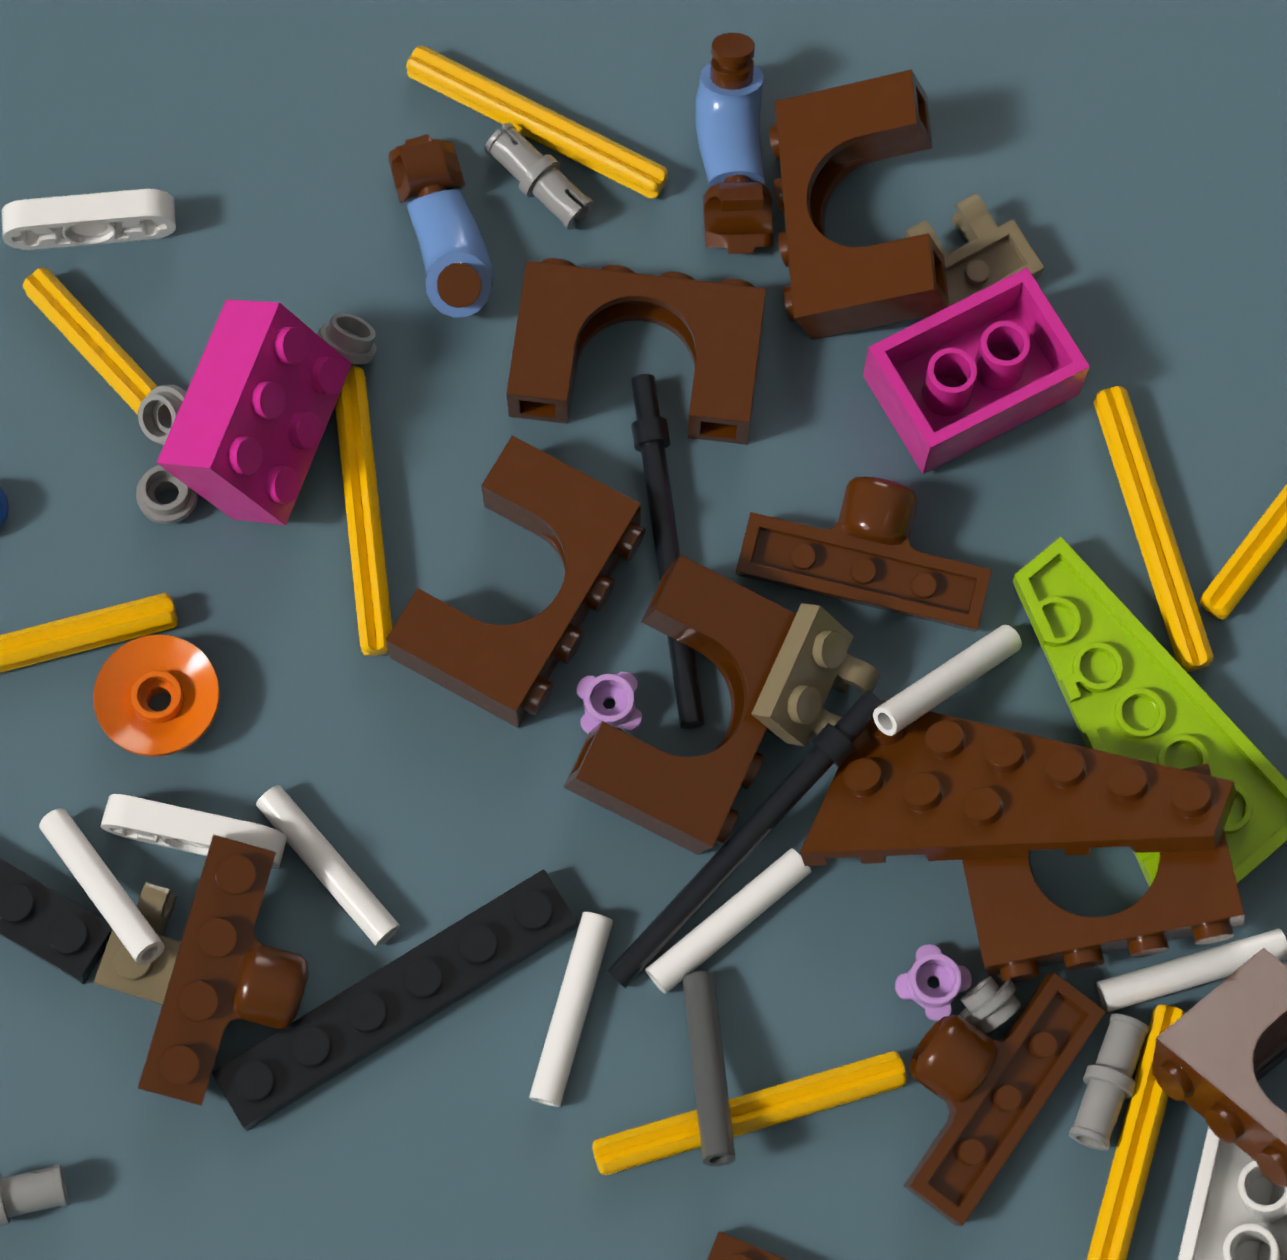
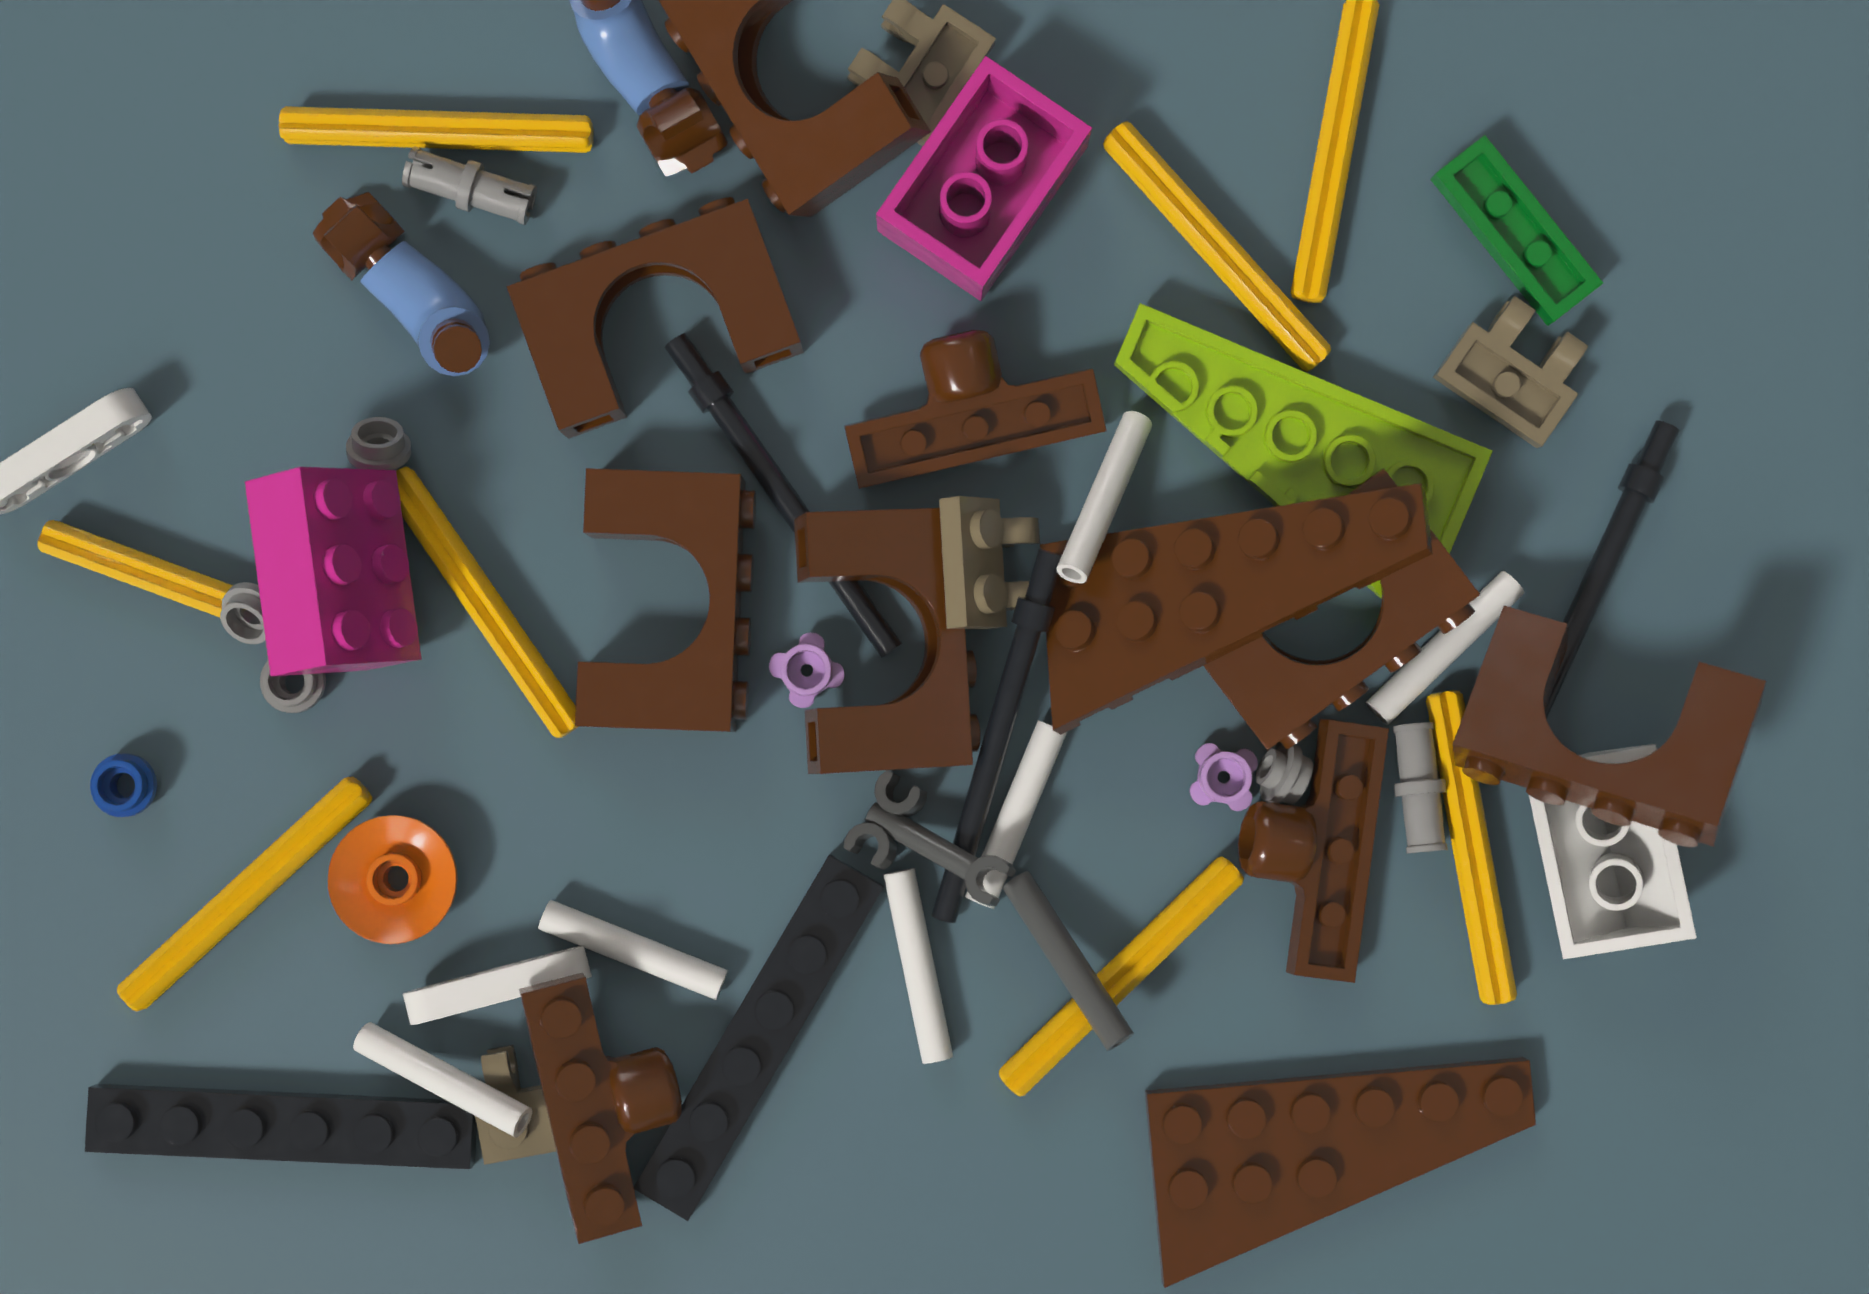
camera: 30 degrees left, 15 degrees up
(615, 868) = (889, 822): none -> dark grey bar

